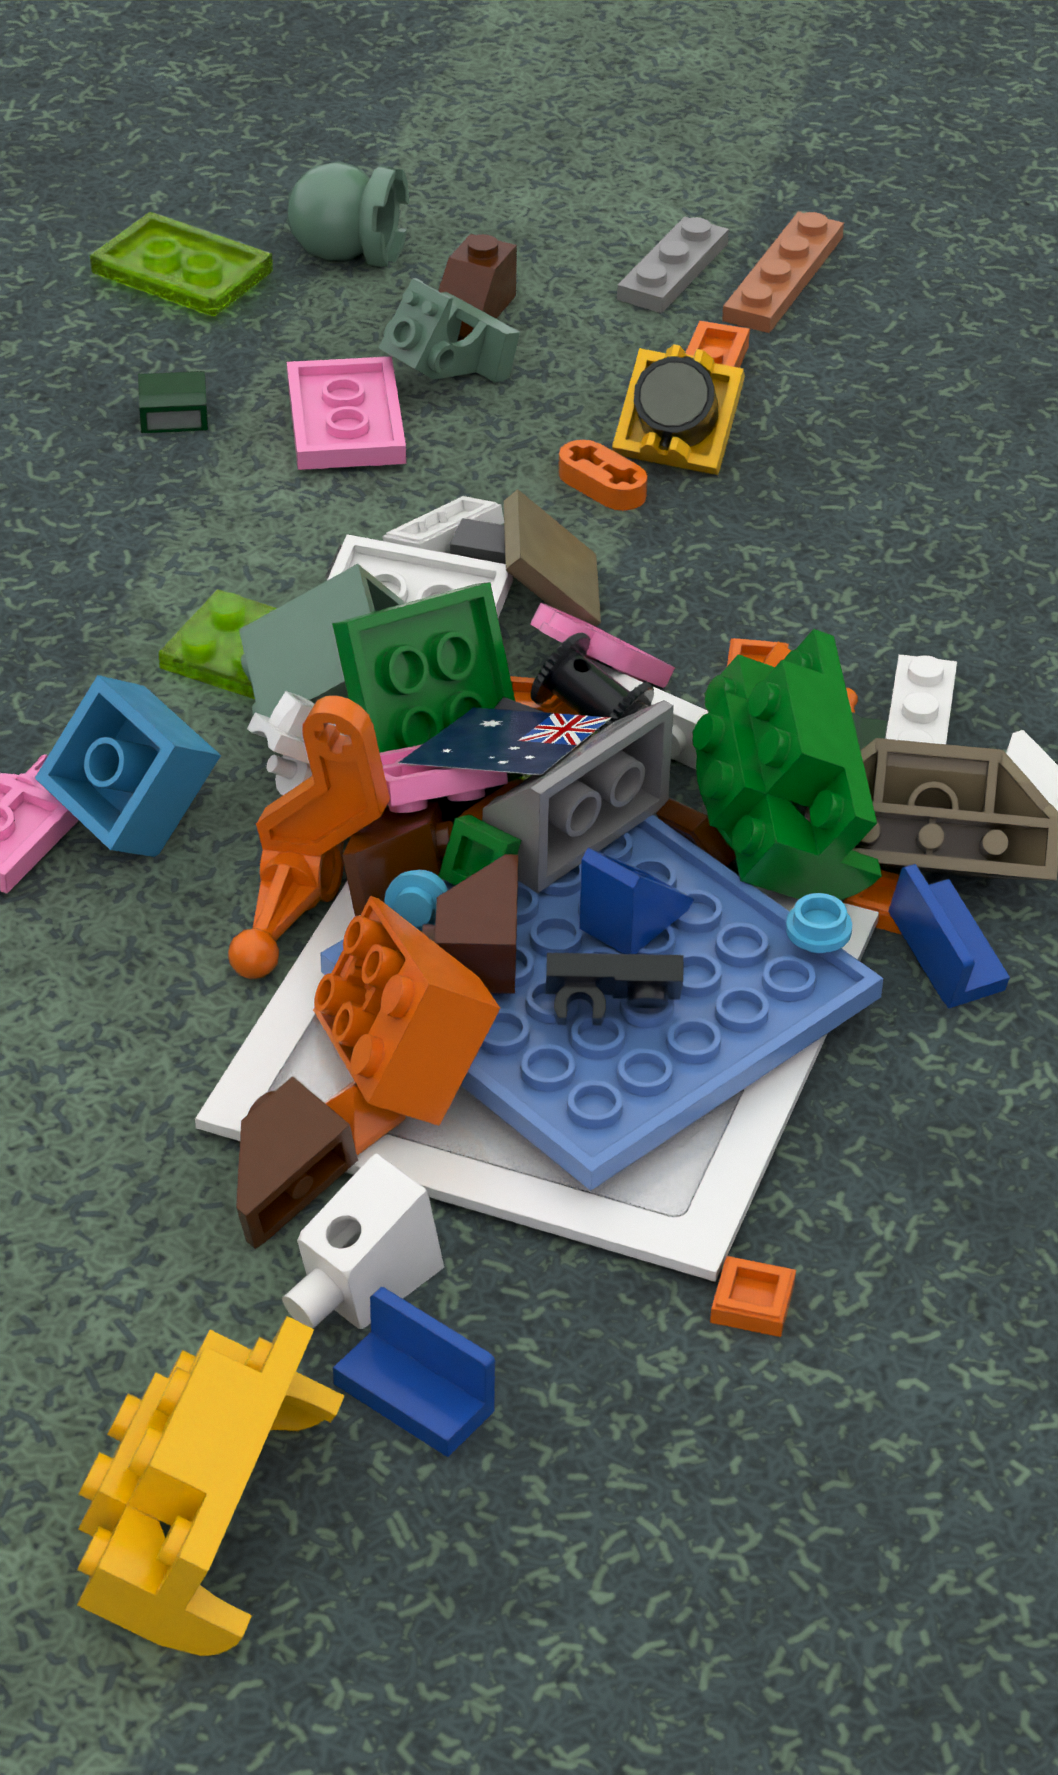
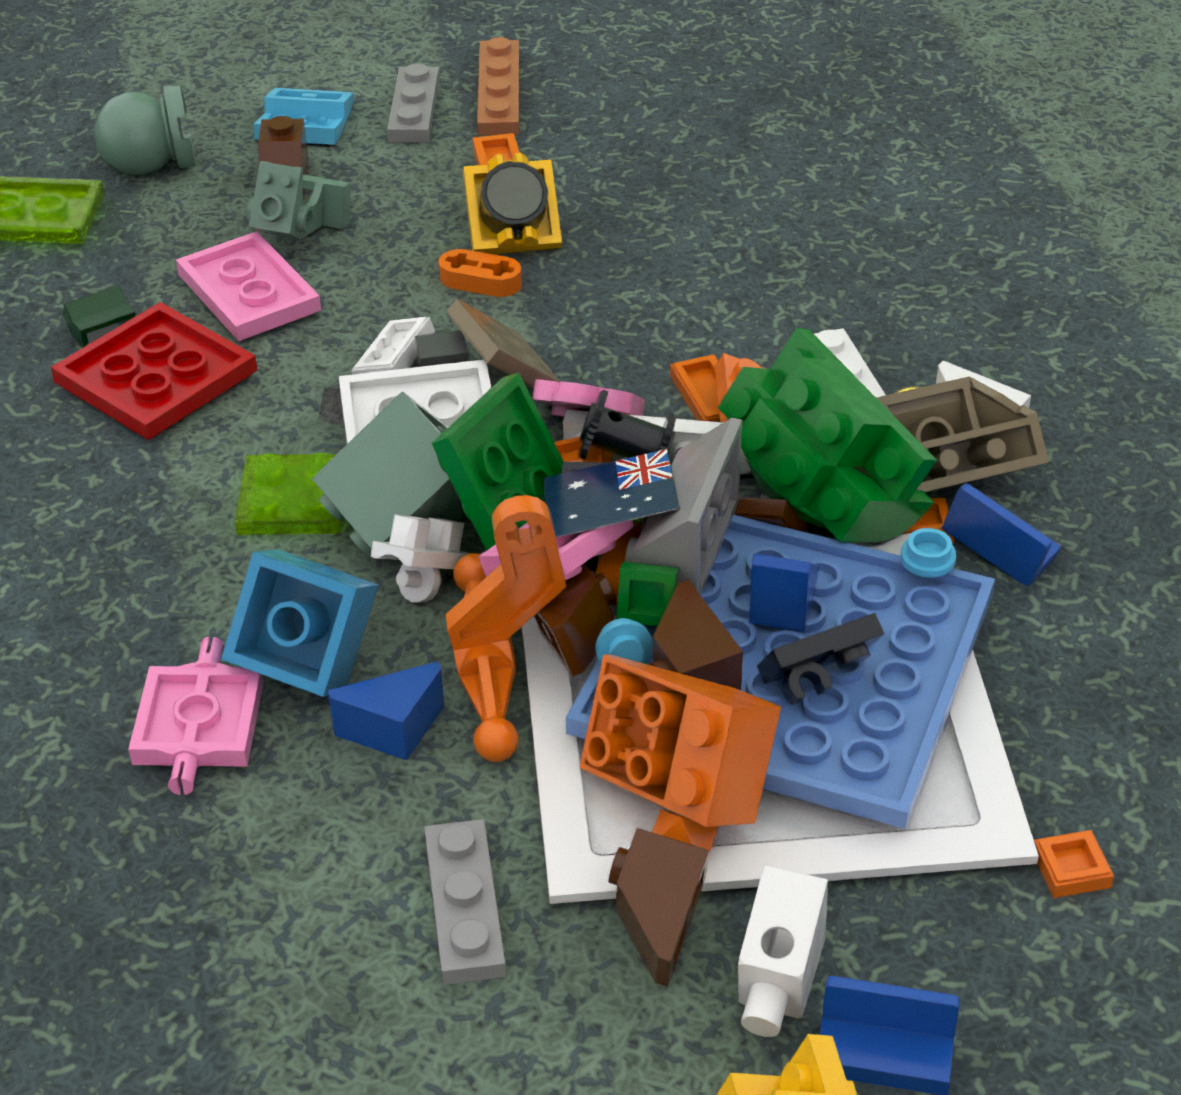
camera: 25 degrees left, 0 degrees up
(116, 1094) = (464, 902): none -> light grey plate
(174, 887) = (389, 710): none -> blue slope
(189, 472) = (154, 370): none -> red plate
(551, 243) = (322, 111): none -> medium azure slope

